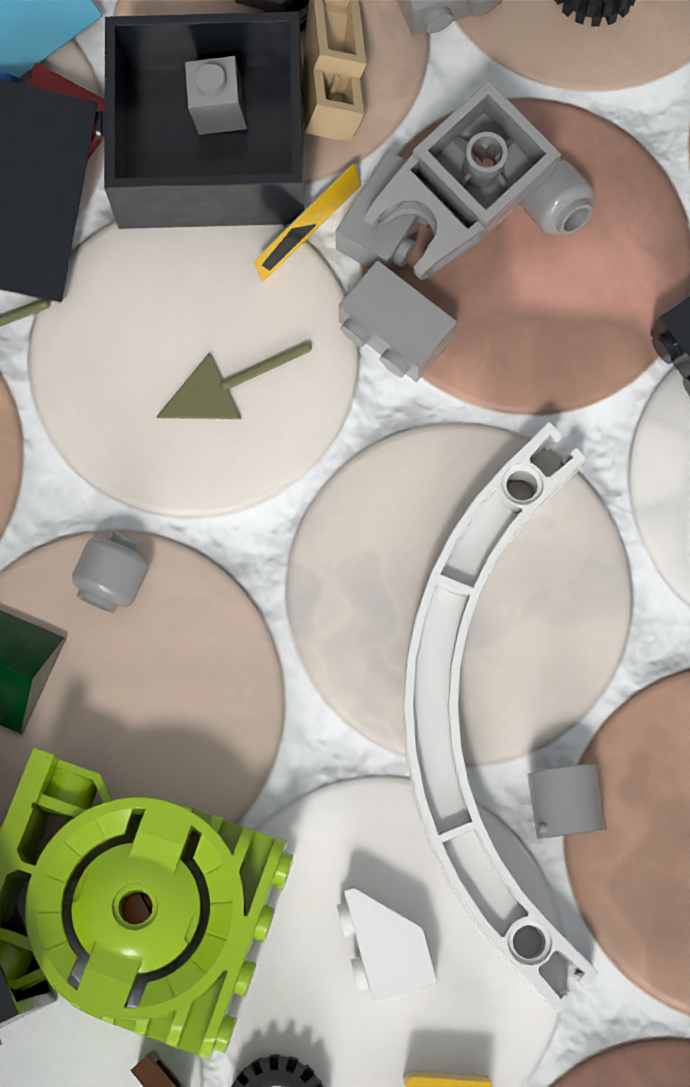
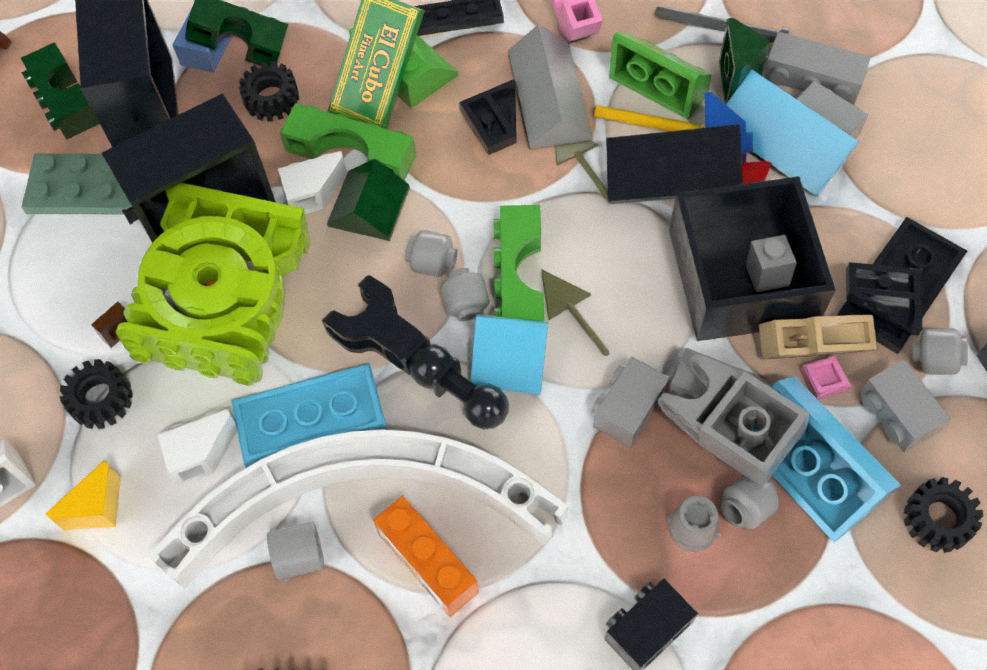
camera: 85 degrees right, 15 degrees down
(193, 528) = (465, 294): none -> light grey head
(227, 453) = (519, 237): none -> bright green arch
(273, 617) = (405, 346): none -> black piece
(304, 474) = (509, 353): none -> medium azure tile
(307, 223) = (692, 336): yellow sticker -> none
(350, 779) = (307, 411): none -> medium azure tile
(389, 71) = (825, 377): none -> bright pink tile
(543, 72) = (830, 468): none -> medium azure slope
(577, 272) = (694, 524): none -> light grey piece
(592, 621) = (426, 556): none -> orange brick

